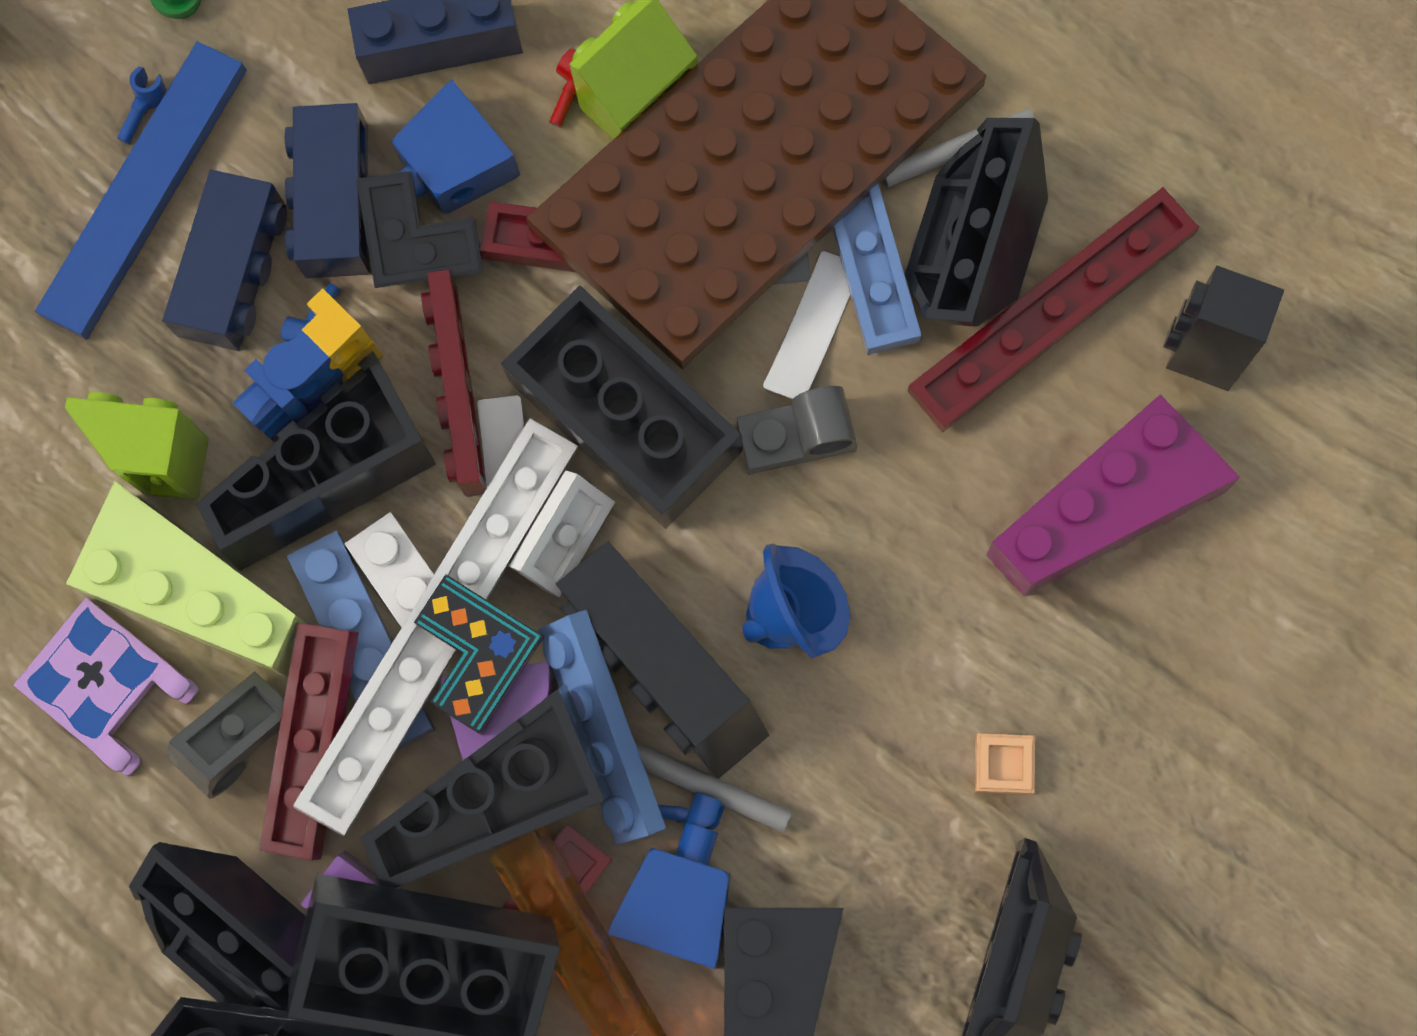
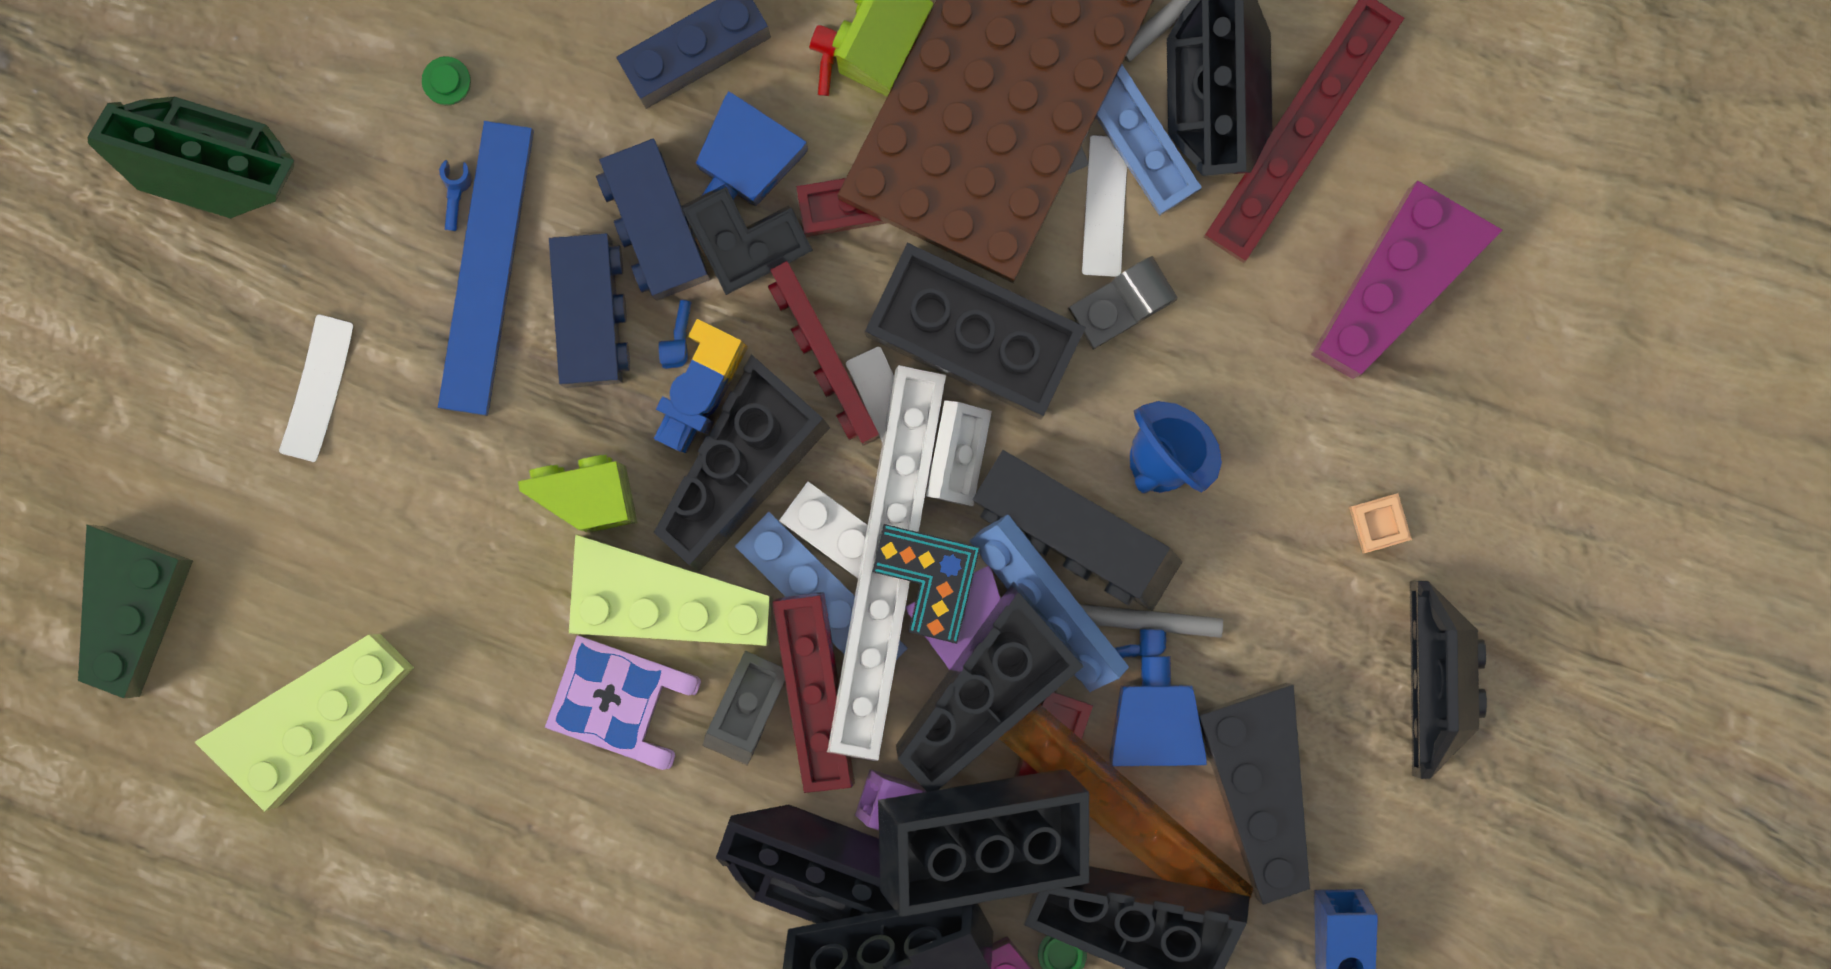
camera: 25 degrees left, 10 degrees up
(1221, 327) = (1453, 111): black brick -> none

